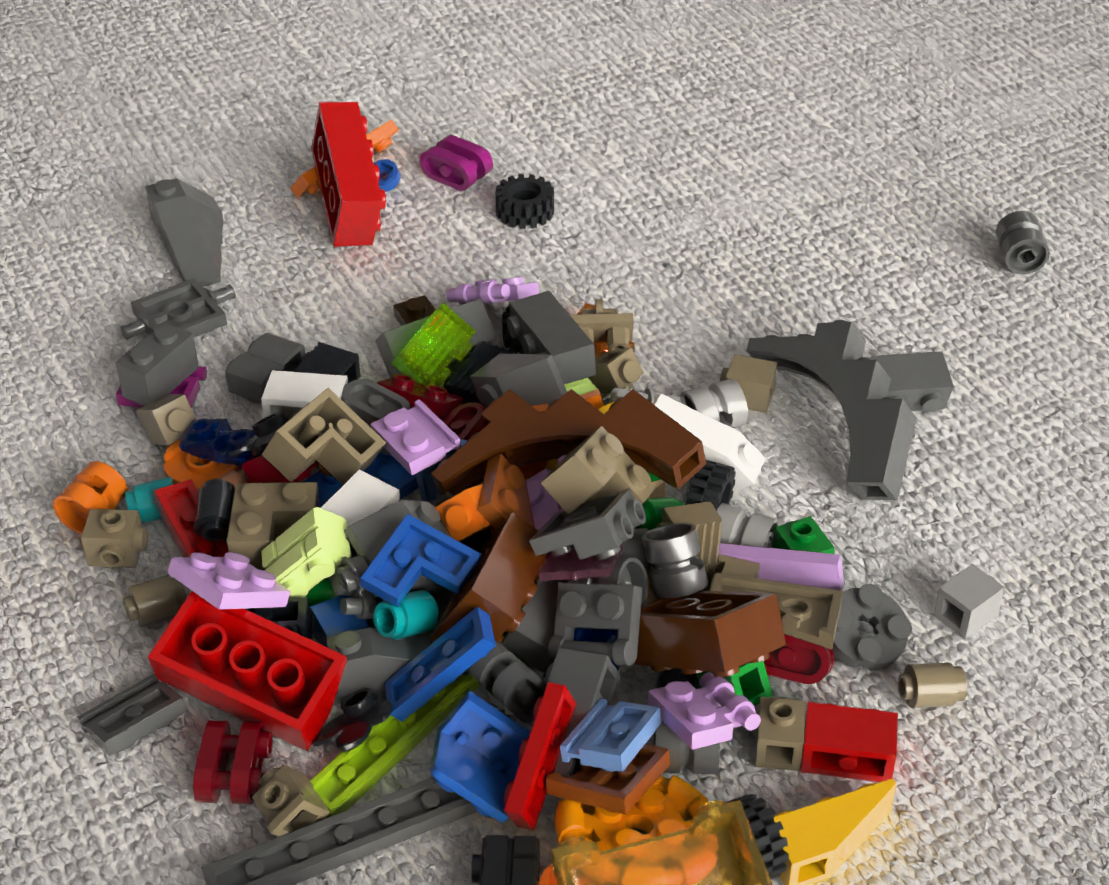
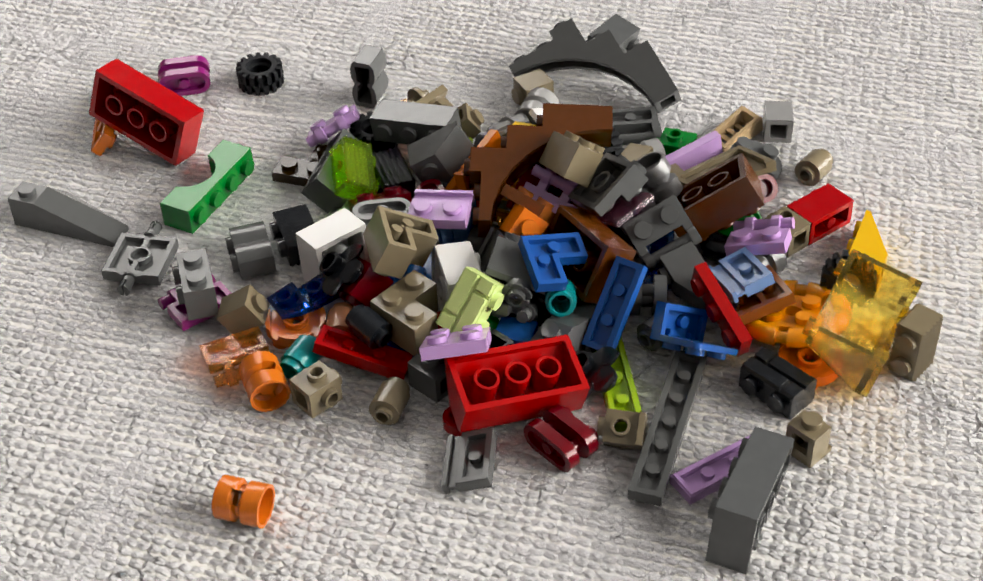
camera: 45 degrees left, 0 degrees up
(120, 450) = (229, 352): none -> clear orange plate
(286, 292) = (191, 206): none -> green arch
(599, 263) = (369, 76): none -> dark grey brick
(801, 484) = (636, 120): none -> dark grey plate
(929, 568) = (742, 116): none -> tan slope

